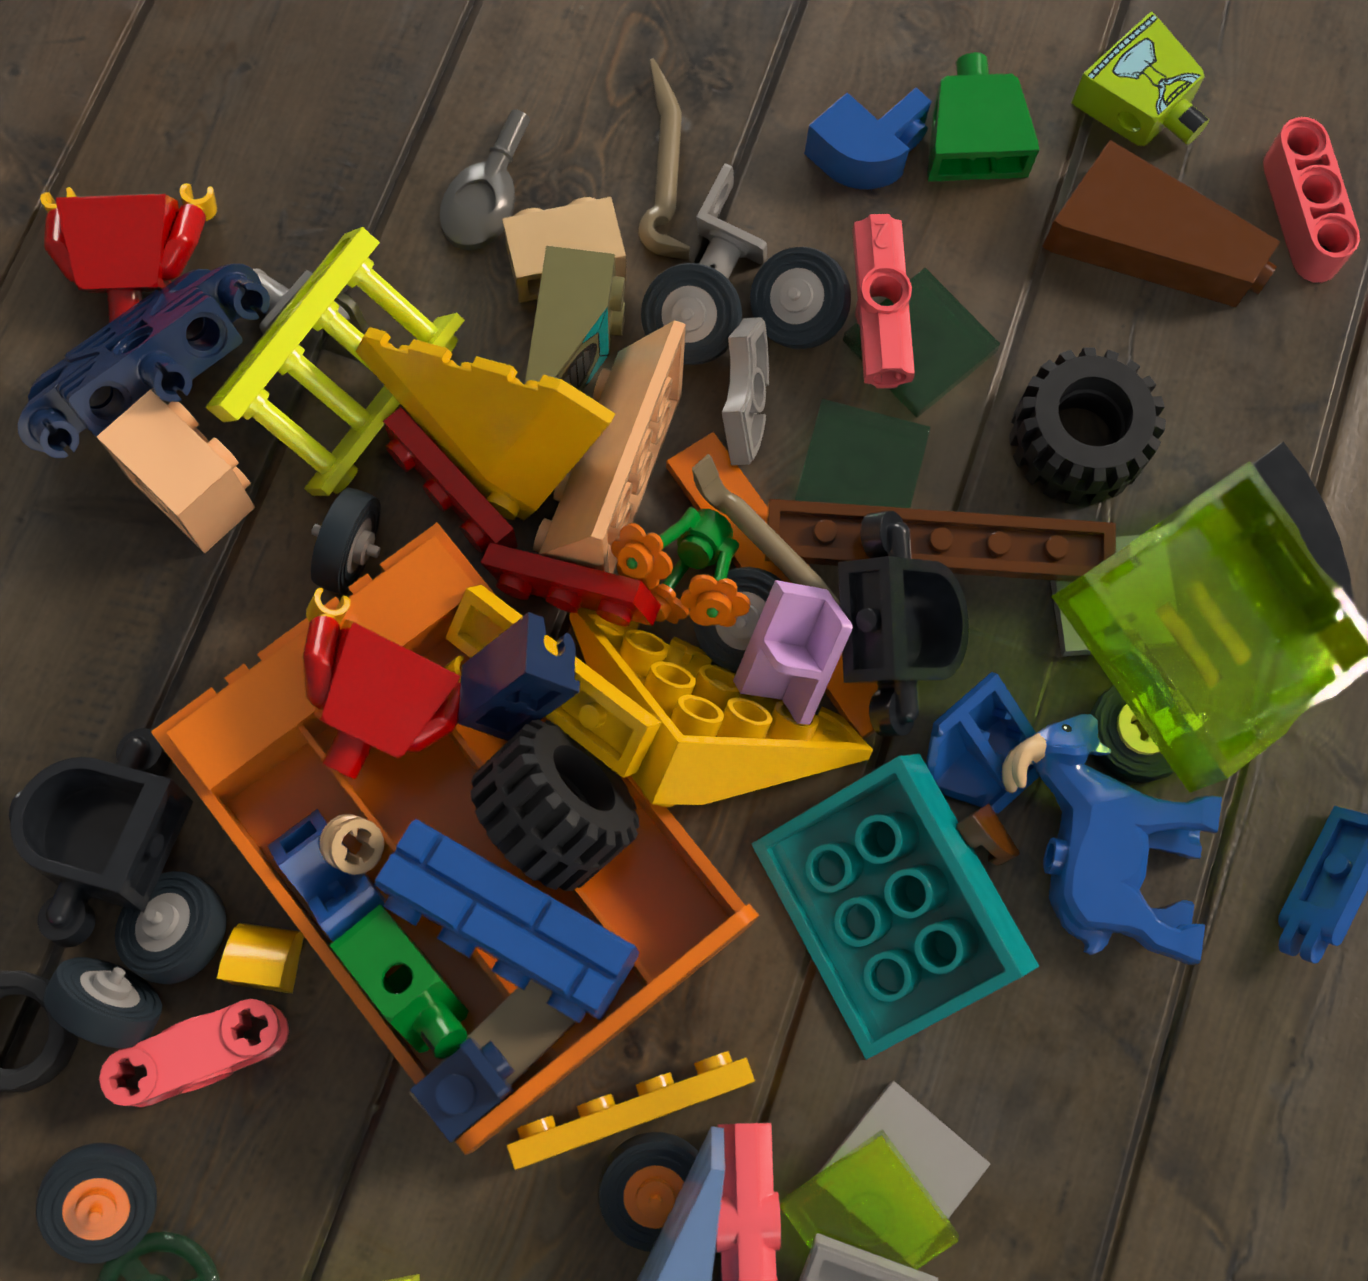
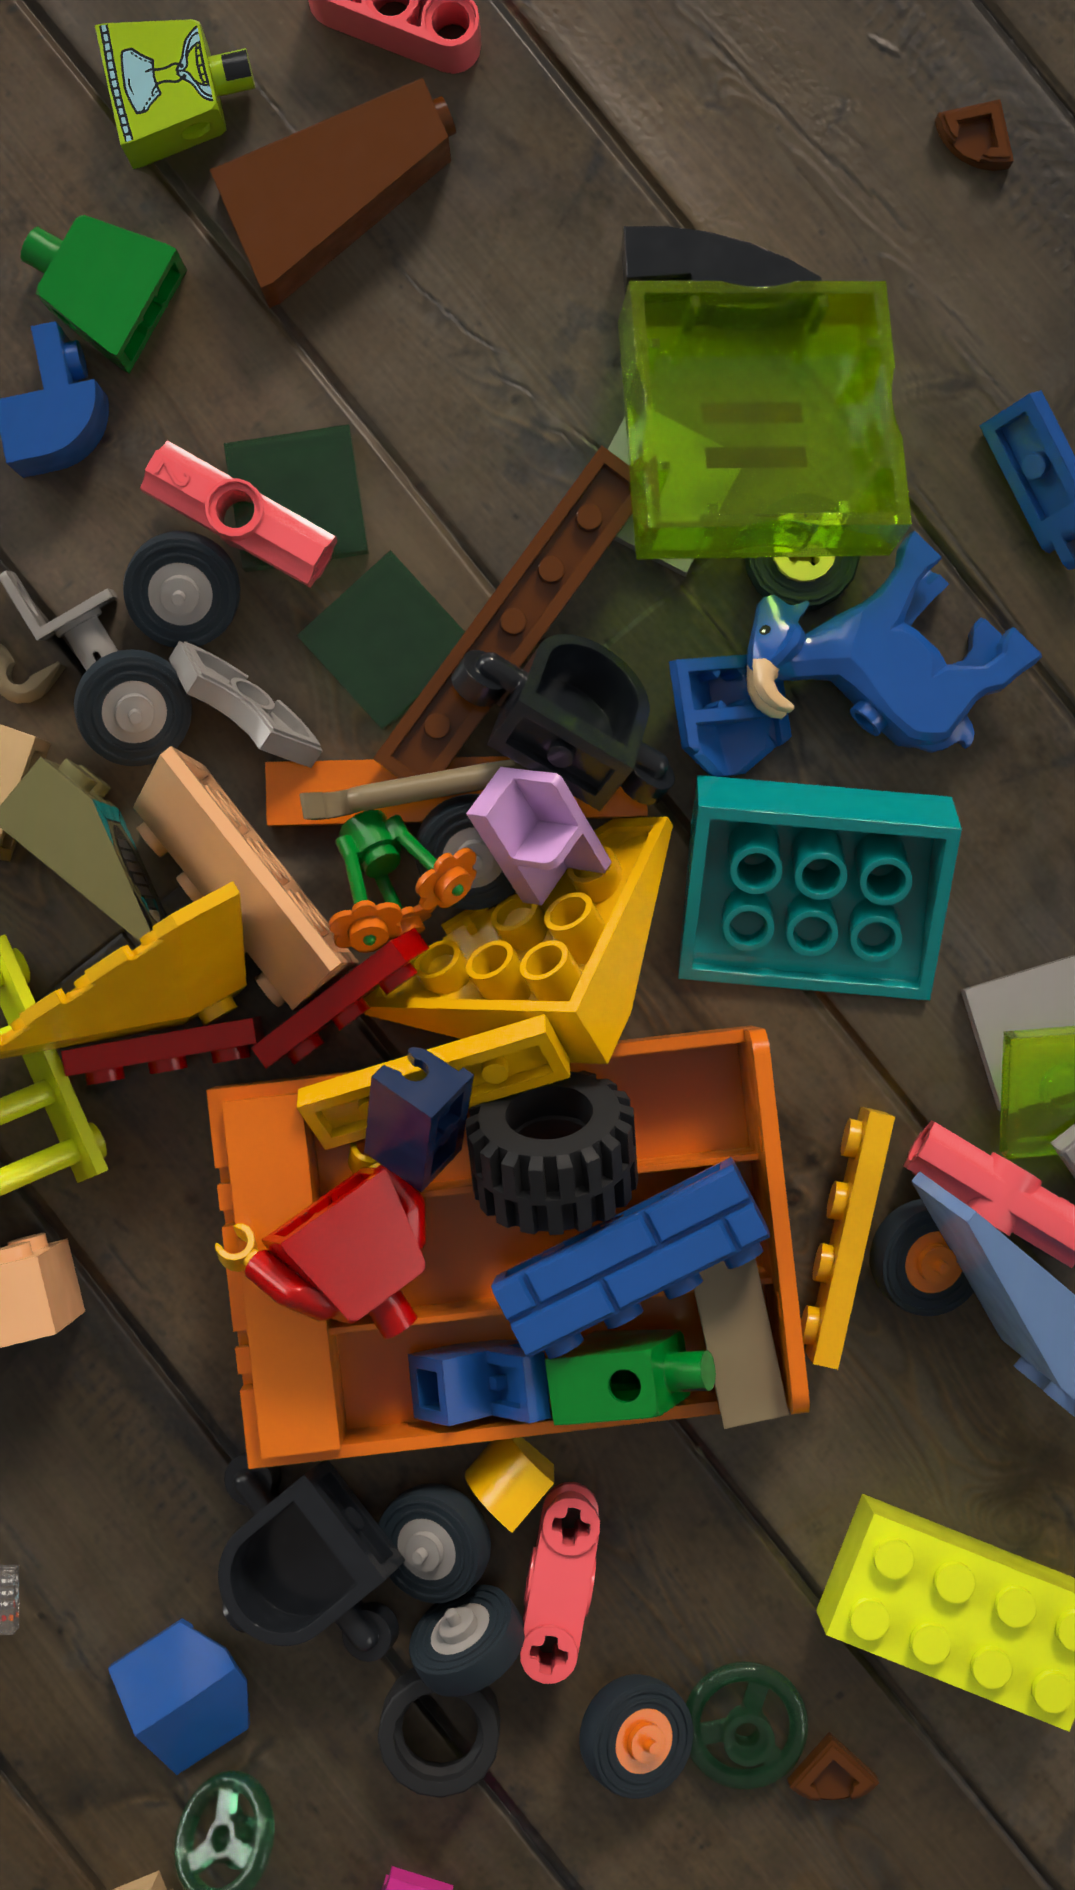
camera: 55 degrees left, 15 degrees up
(345, 540) = (163, 1180): black wheel -> none
(368, 835) = (487, 1342): tan bush -> none
(465, 1087) = (753, 1380): dark blue bracket -> none
(986, 829) = (805, 761): reddish brown tile -> none
(1112, 393) = (477, 351): black tyre -> none

